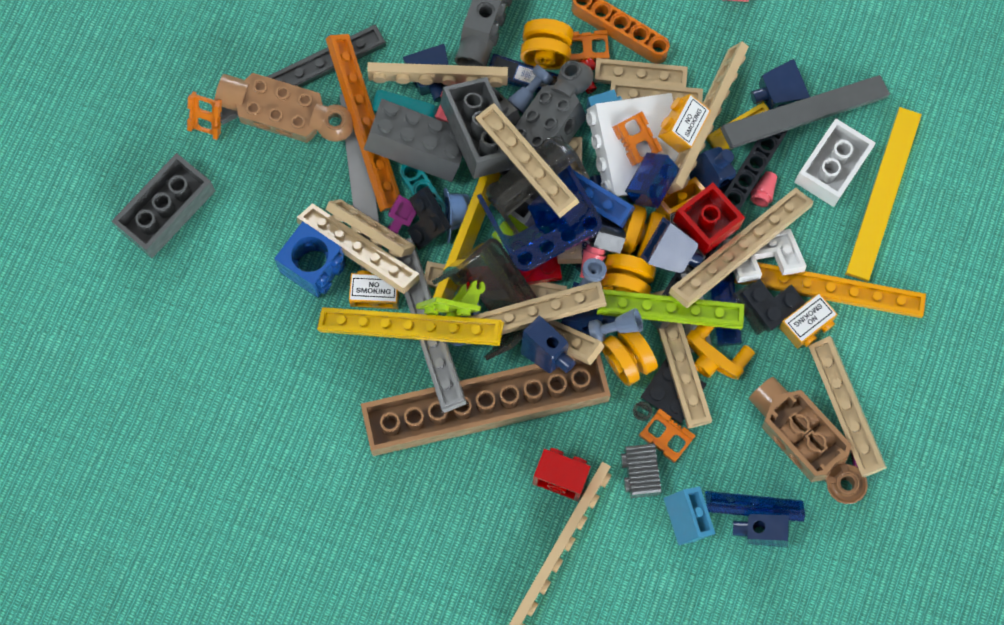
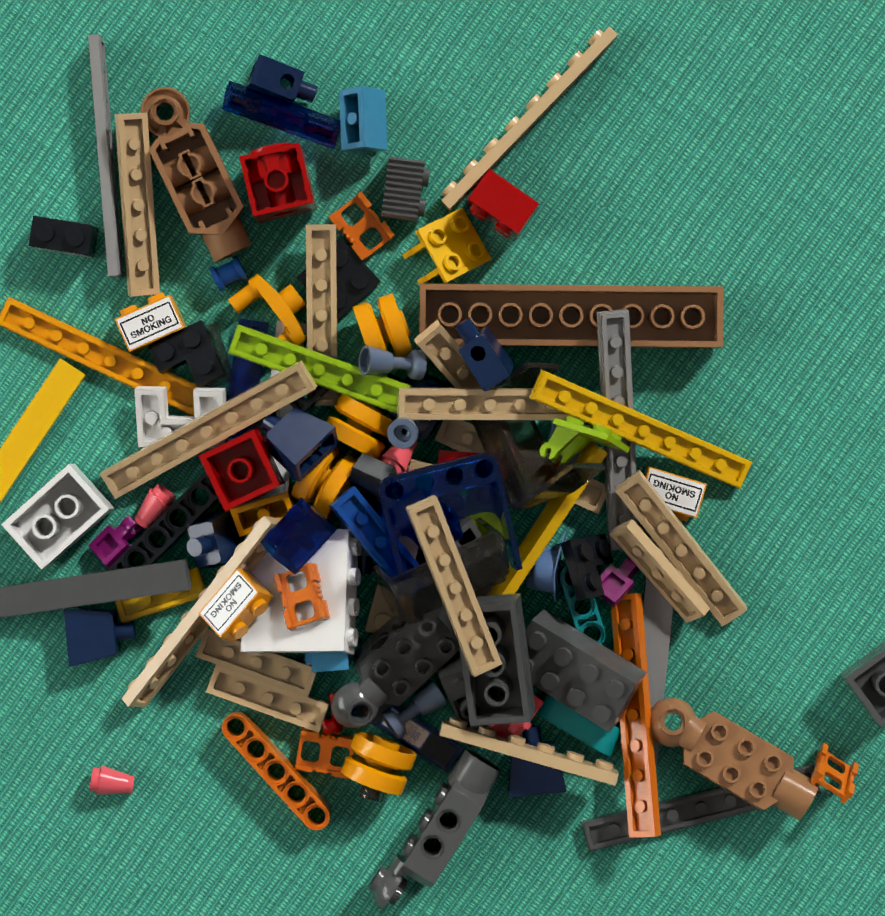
camera: 155 degrees left, 15 degrees up
(303, 241) = (769, 547): blue brick -> none
(593, 435) = (452, 246): none -> yellow plate
(640, 416) = (386, 258): clear smoke hinge -> none
(742, 445) = (278, 182): none -> red brick
(760, 373) = (228, 273): none -> blue bush
(788, 156) = (113, 541): none -> magenta plate
(883, 440) = (106, 156): none -> light grey tile
(895, 369) = (63, 236): none -> black brick

